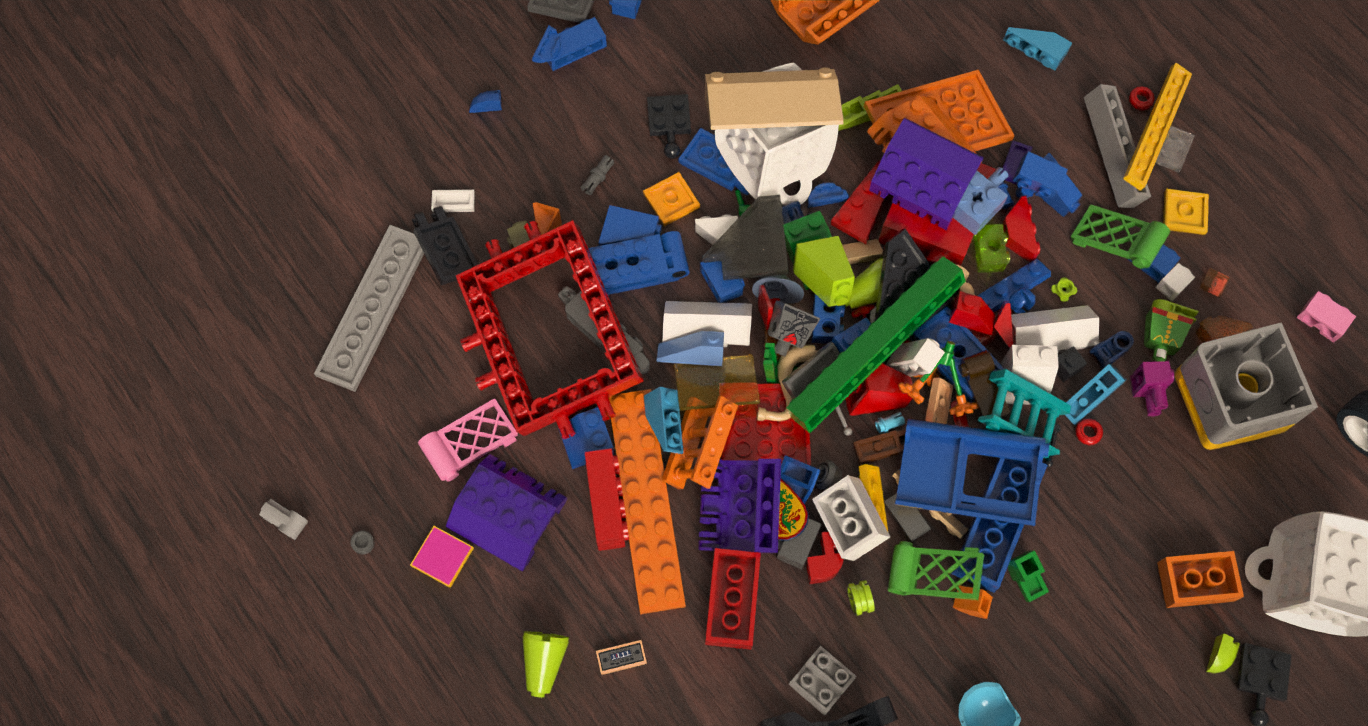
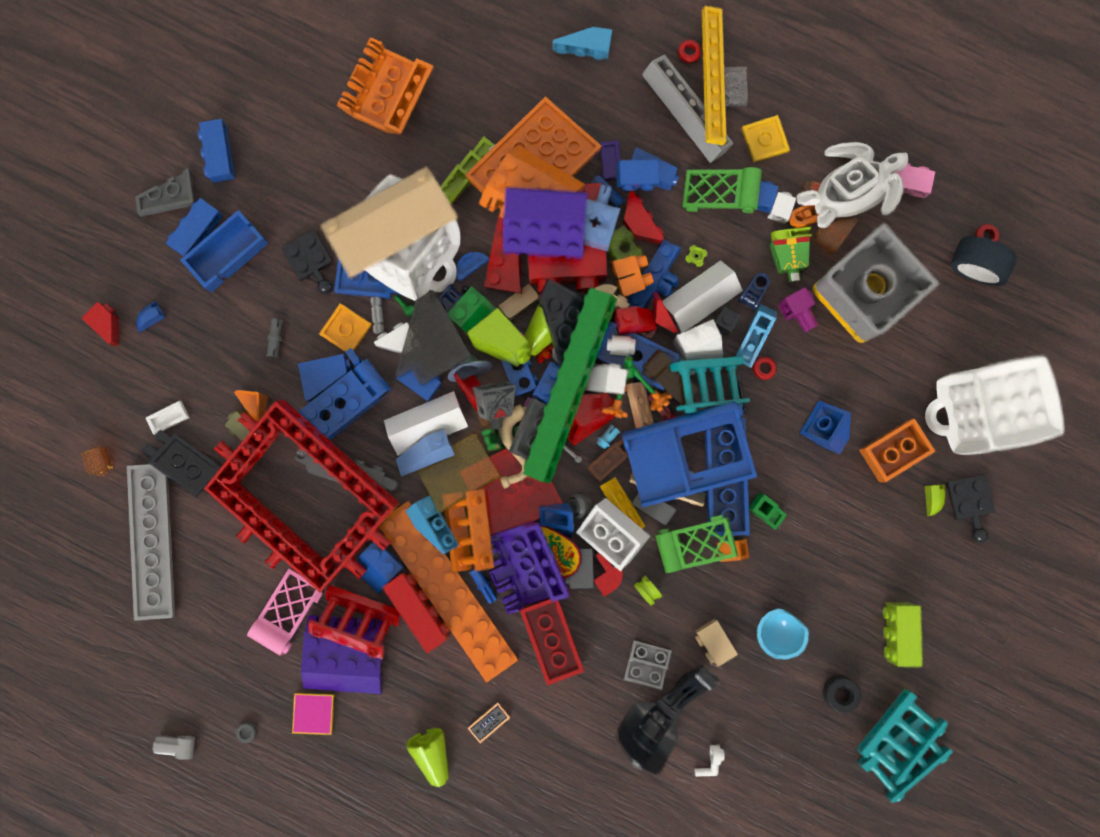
camera: 20 degrees left, 15 degrees up
(363, 207) = (97, 461): none -> clear orange brick
(442, 86) = (104, 322): none -> red slope
(548, 46) = (175, 245): blue tile -> none
(549, 466) = (360, 604): none -> red fence
(592, 74) = (224, 251): none -> blue piece
(667, 224) = (353, 357): none -> blue tile
(687, 509) = (483, 584): none -> blue axle
(710, 198) = (377, 315): none -> light grey axle
(910, 690) = (716, 642): none -> tan brick
(947, 331) = (621, 345): none -> white brick
(986, 270) = (629, 266): none -> orange hips
(1133, 522) = (828, 427): none -> blue slope
(1199, 299) = (802, 216): none -> orange plate
(1265, 290) = (857, 184): none -> white animal

